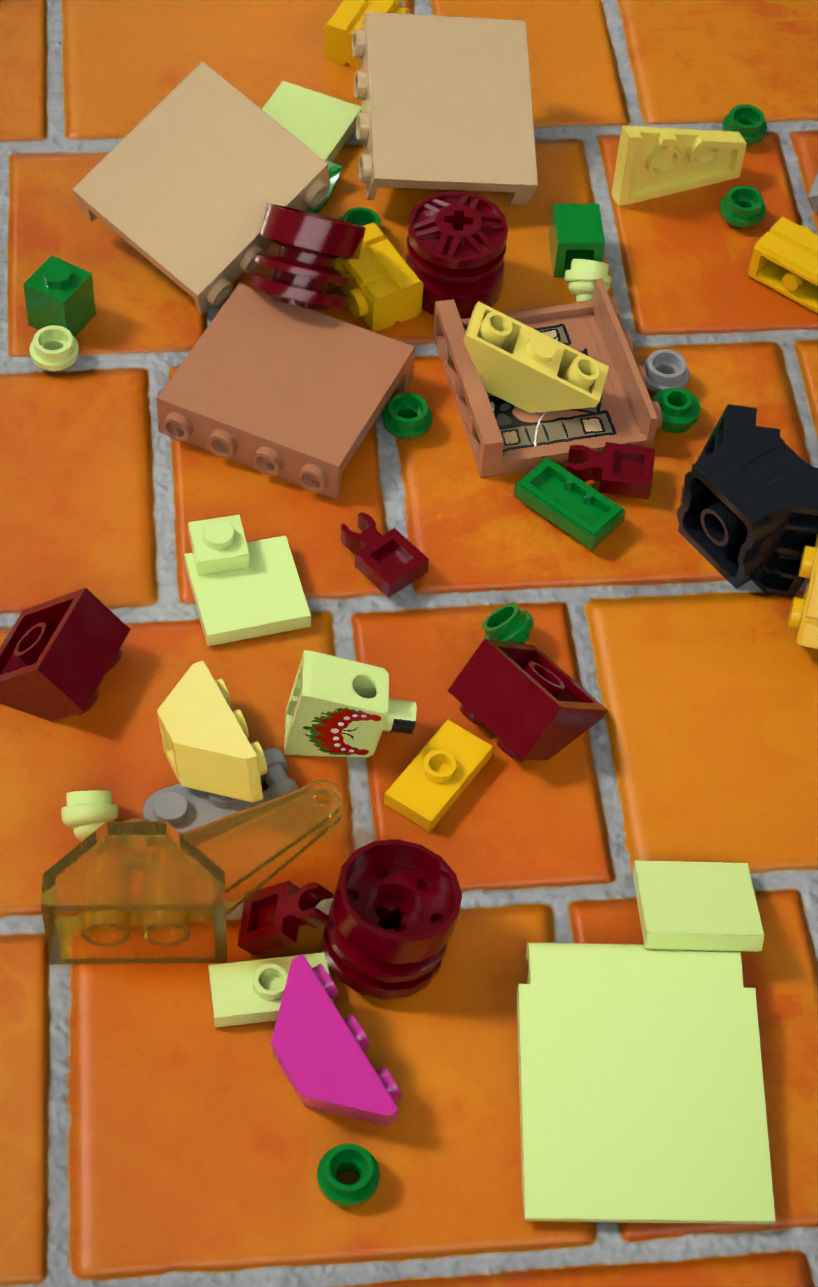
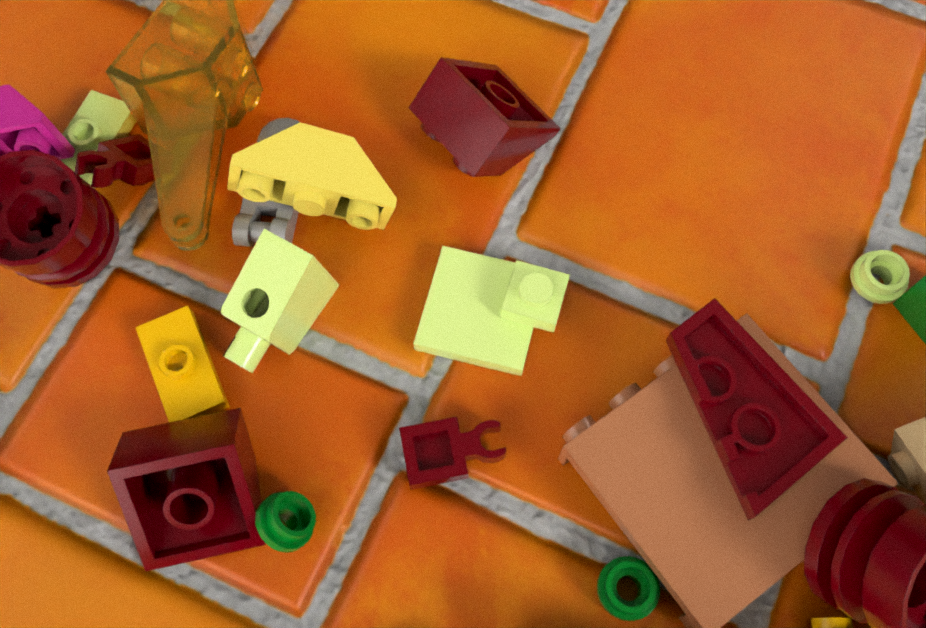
camera: 125 degrees right, 15 degrees up
(88, 811) = (321, 84): yellowish green plate -> none
(242, 363) = (750, 407): none -> dark red wing

